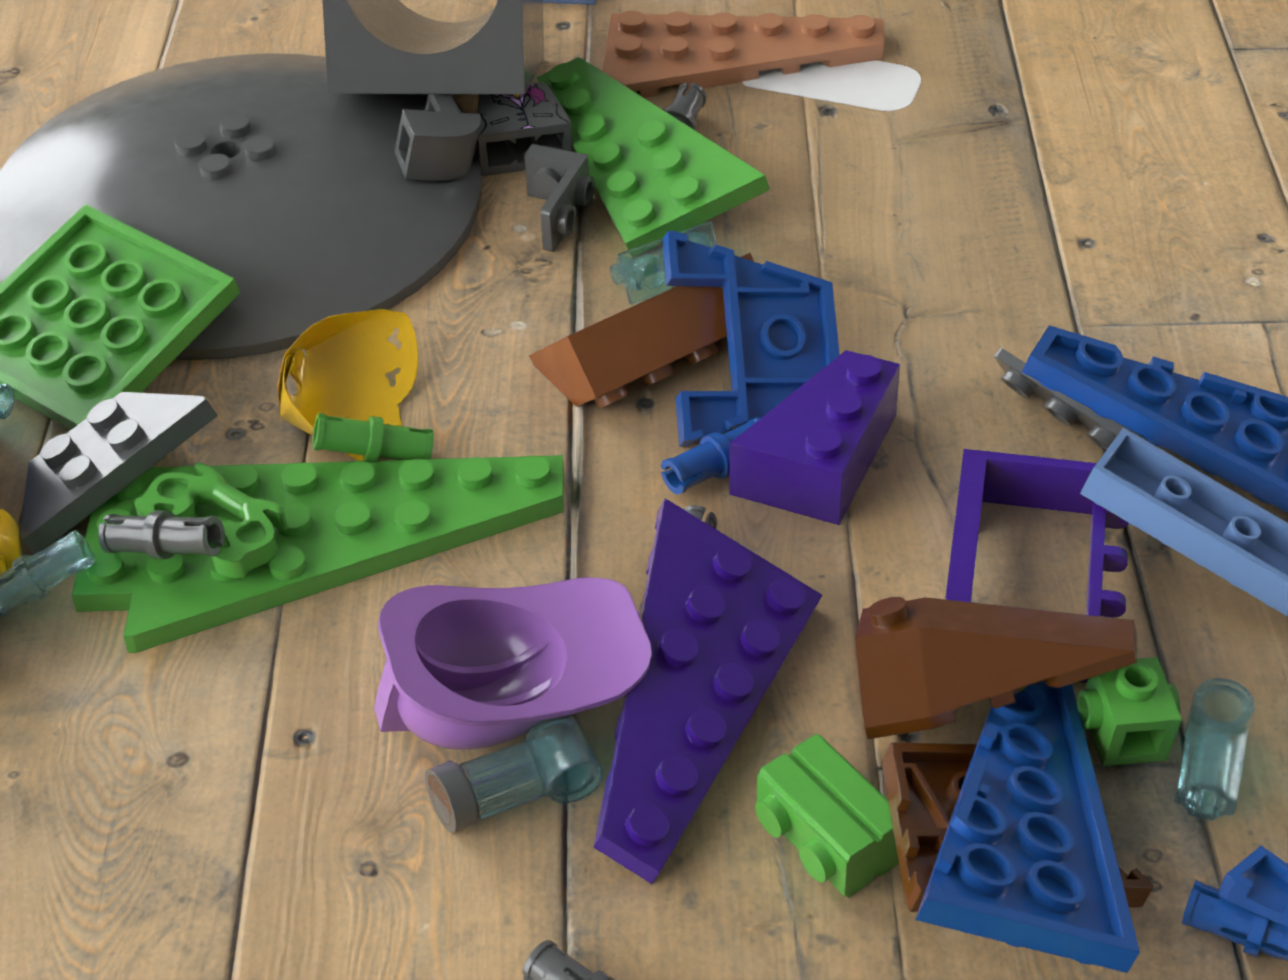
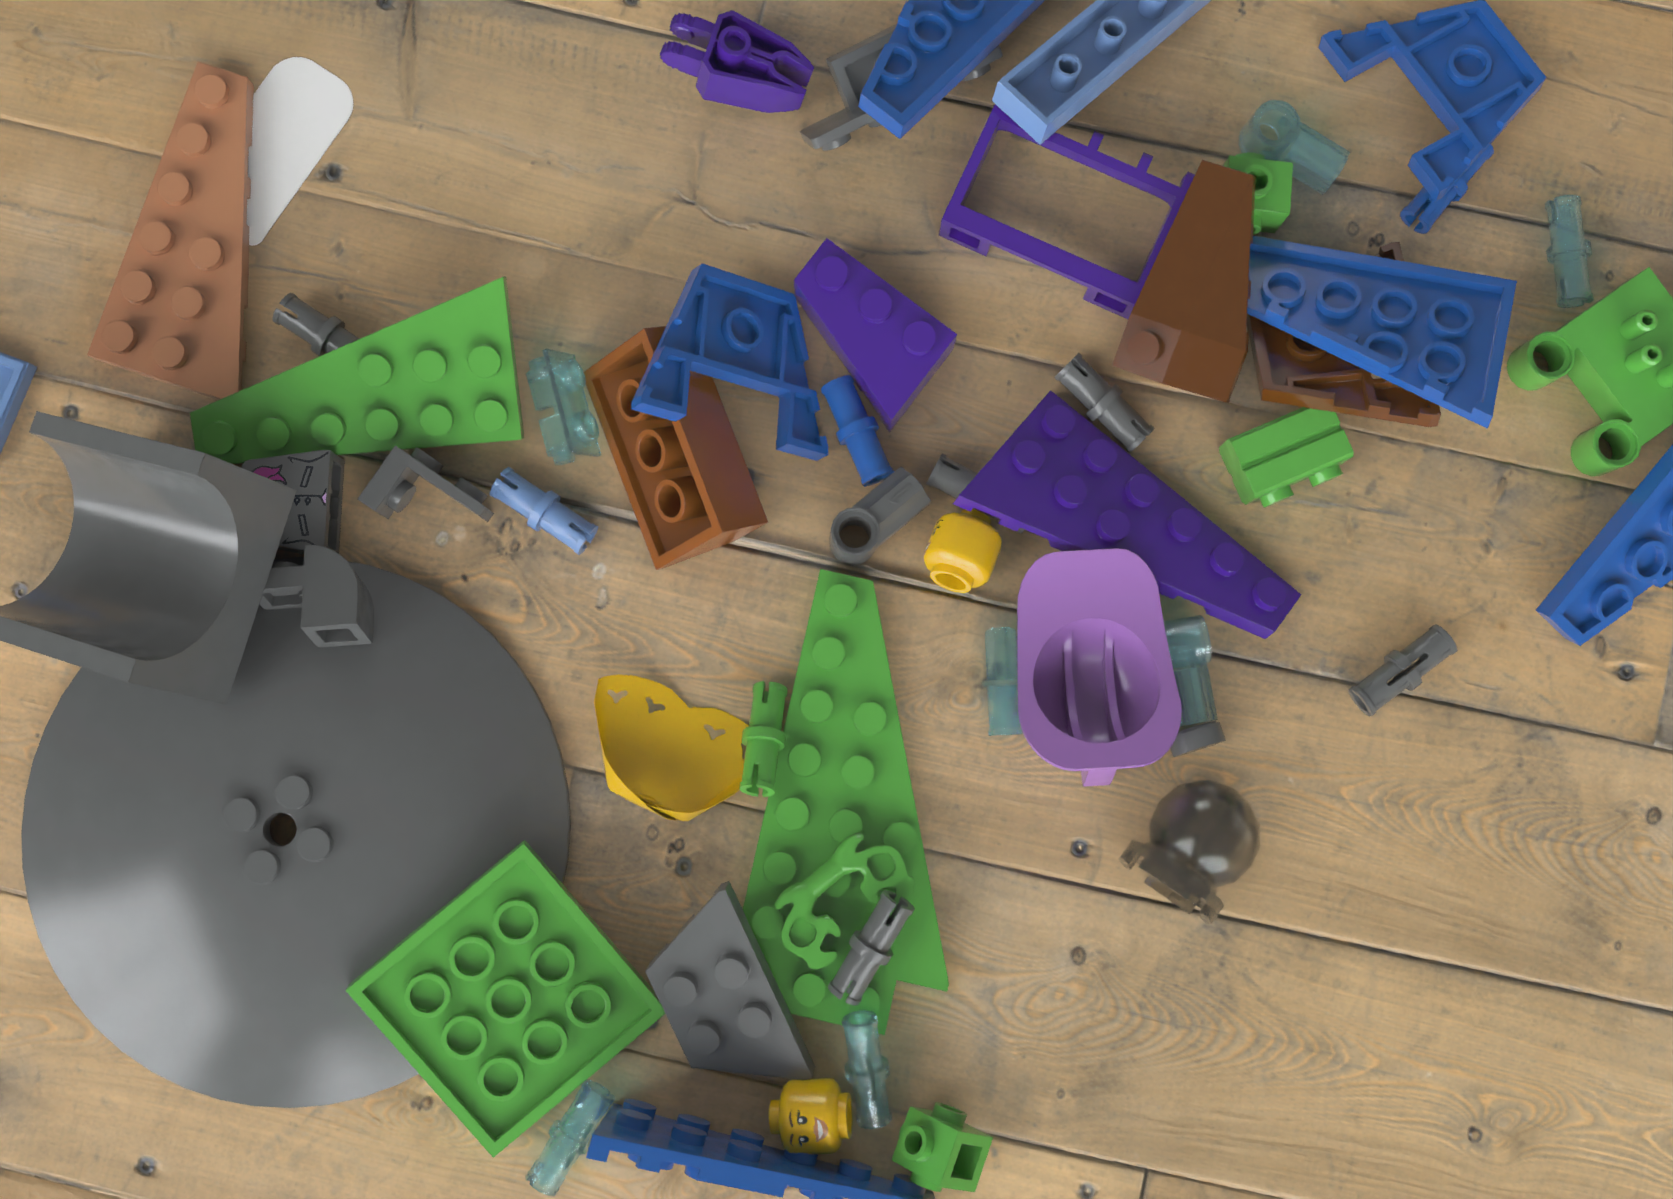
camera: 80 degrees left, 40 degrees up
(319, 798) = (1197, 842): none -> clear smoke tile
(562, 271) = (543, 510): none -> medium blue pin
(613, 547) = (962, 550): none -> yellow head
(614, 476) = (880, 515): none -> dark grey piece
(825, 643) = (1104, 402): none -> dark grey pin
(1051, 288) = (741, 62): none -> dark purple hinge

